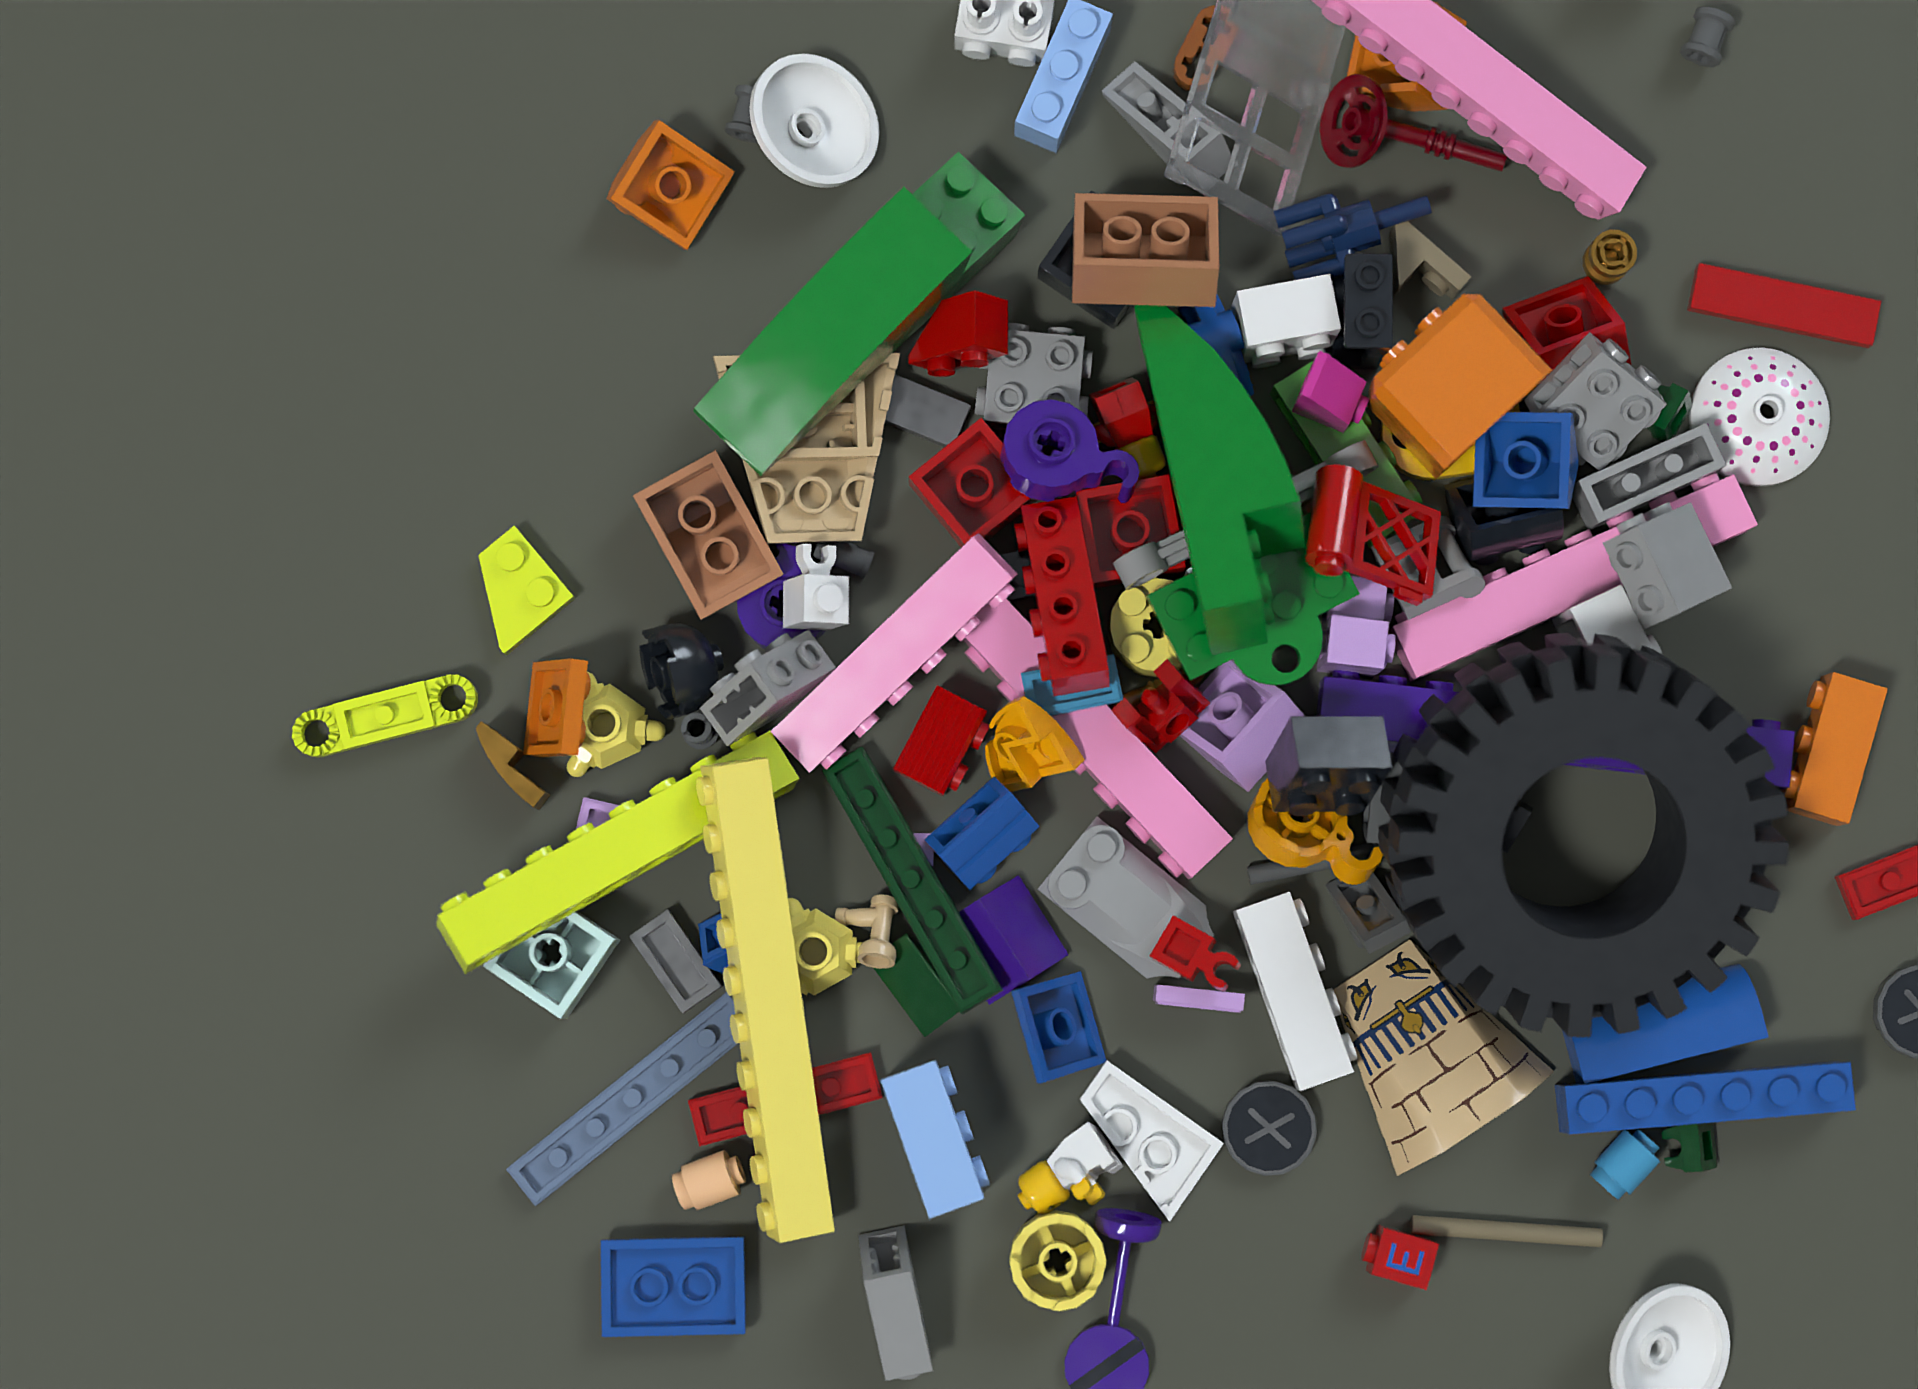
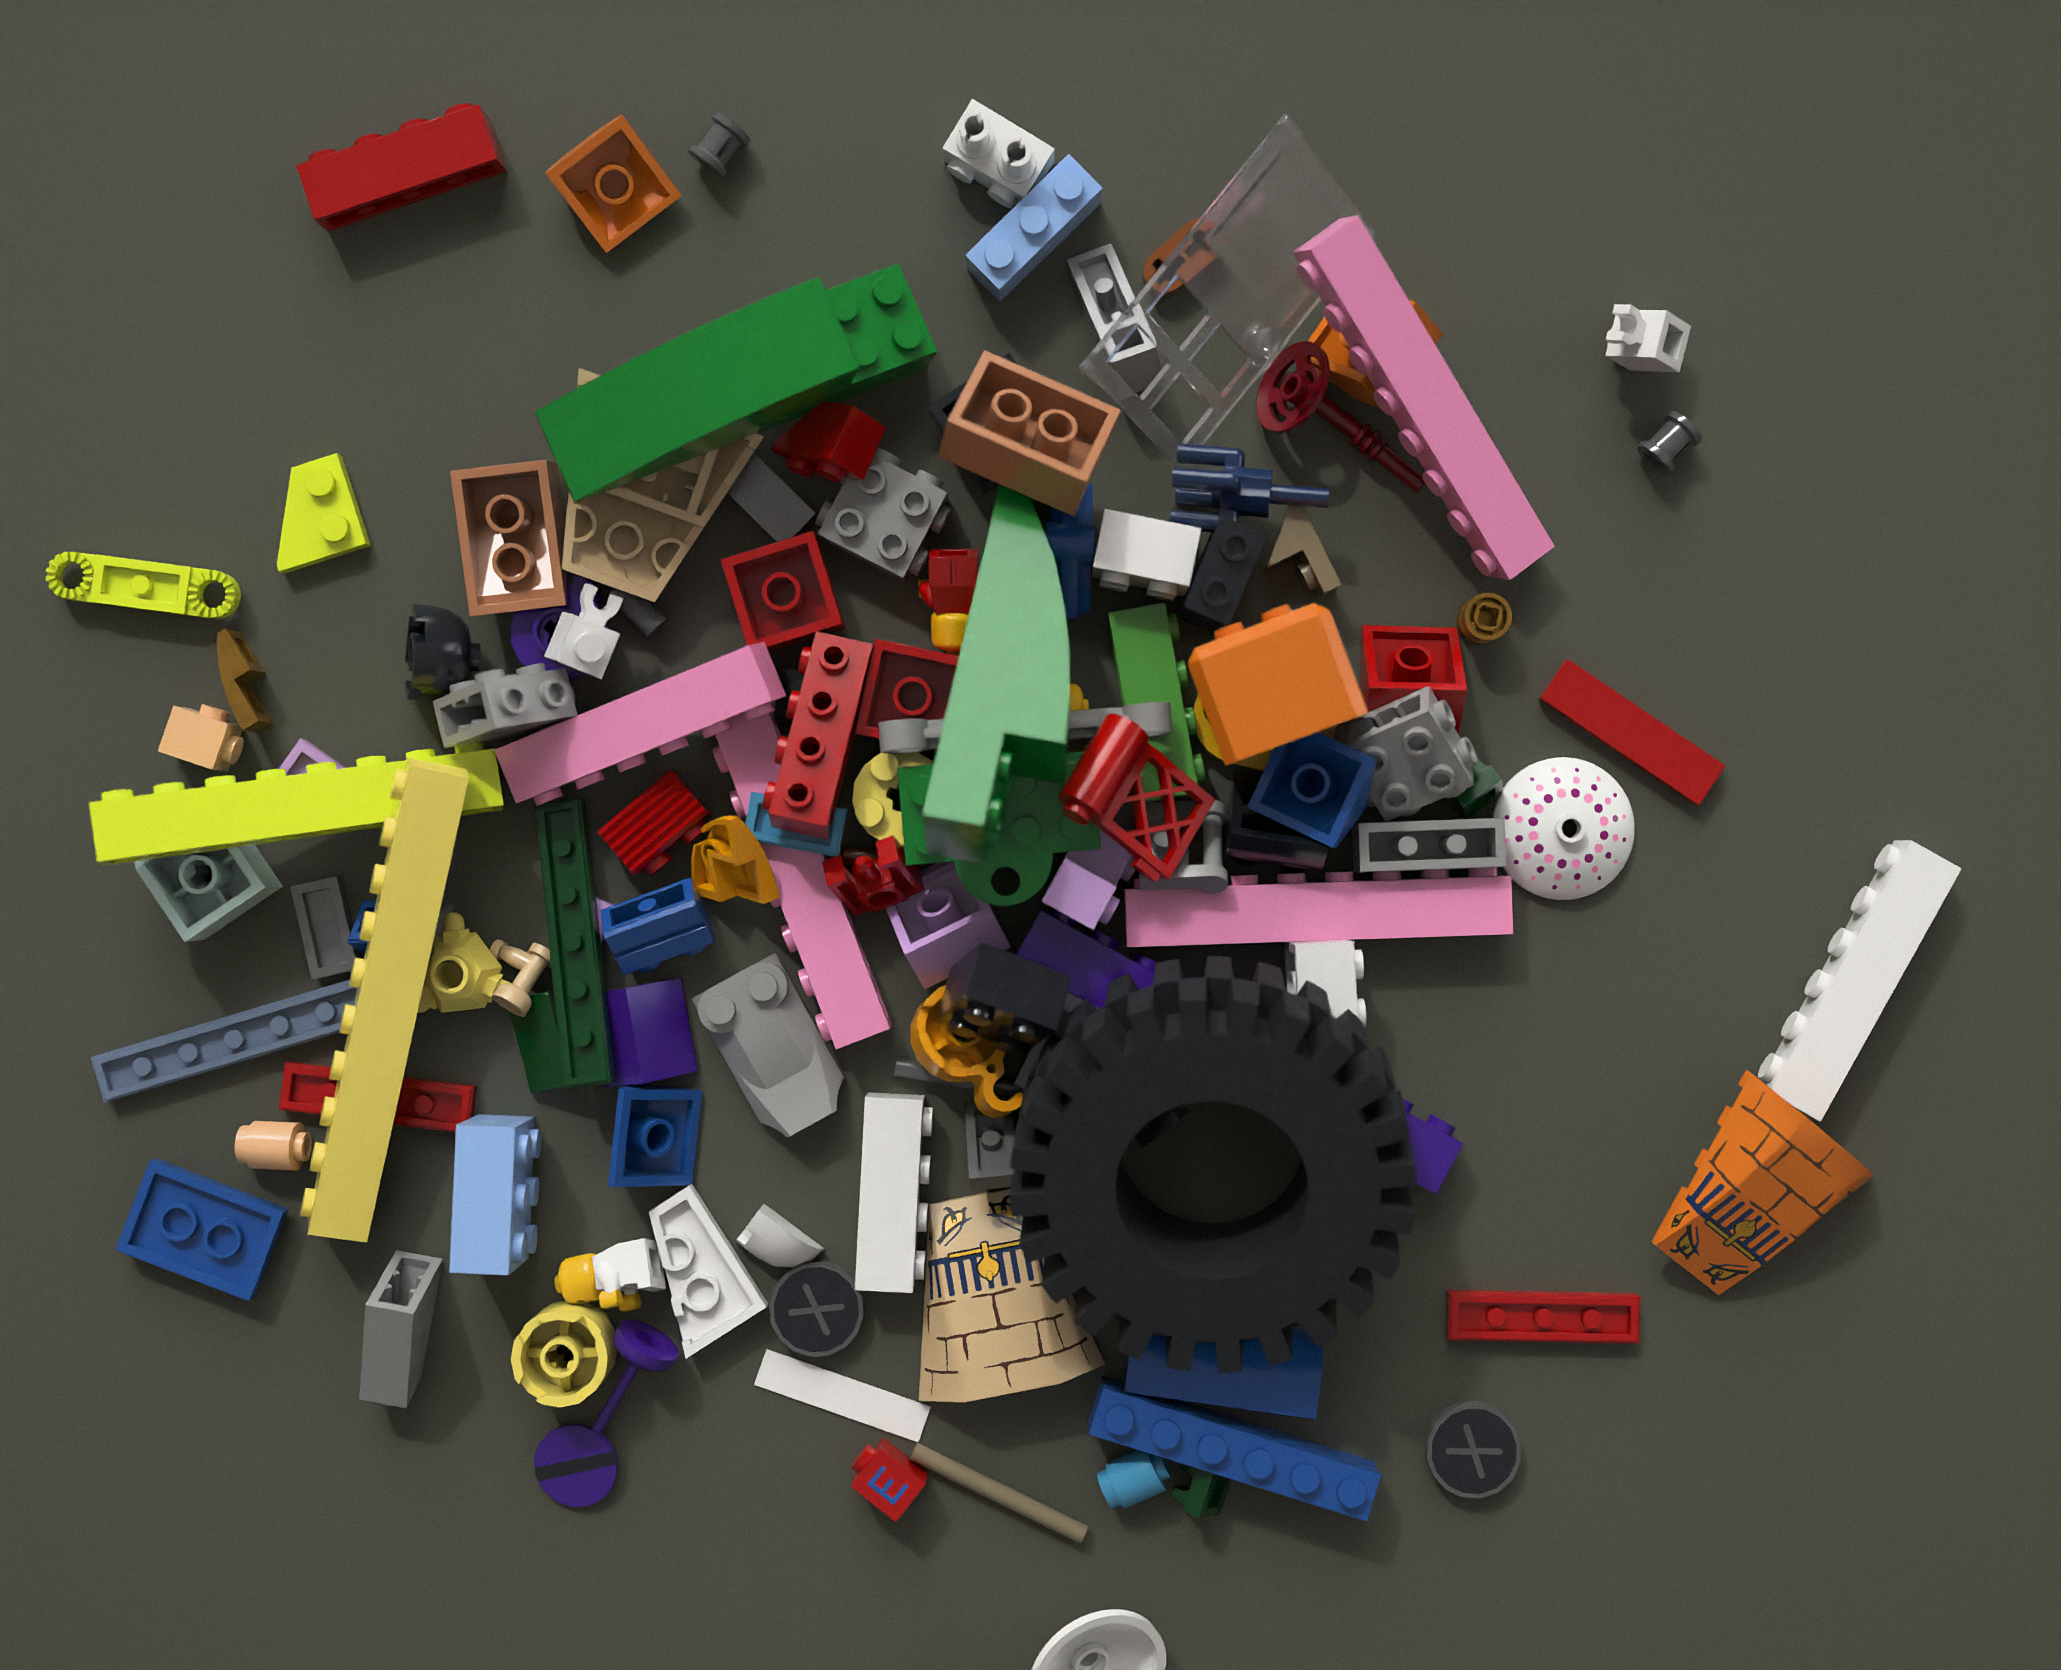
camera: 20 degrees right, 5 degrees up
(472, 245) = (401, 166): none -> red brick
(496, 830) = (202, 737): none -> light nougat brick
(556, 708) = (294, 658): orange plate -> none
(613, 729) = (347, 679): light yellow rock -> none
(704, 741) = (422, 714): dark grey pin -> none
(829, 110) = (793, 161): white dish -> none
(1074, 465) = (874, 617): dark purple piece -> none
(1188, 951) = (801, 1118): red plate -> none
(1198, 998) = (796, 1162): lavender tile -> none
(1205, 1081) = (777, 1240): none -> white brick
(1324, 1201) = (842, 1395): none -> white sticker
(1331, 394) = (1155, 645): dark pink slope -> none
(1665, 563) = (1405, 939): light grey brick -> none
(1834, 748) = (1496, 1172): orange brick -> none

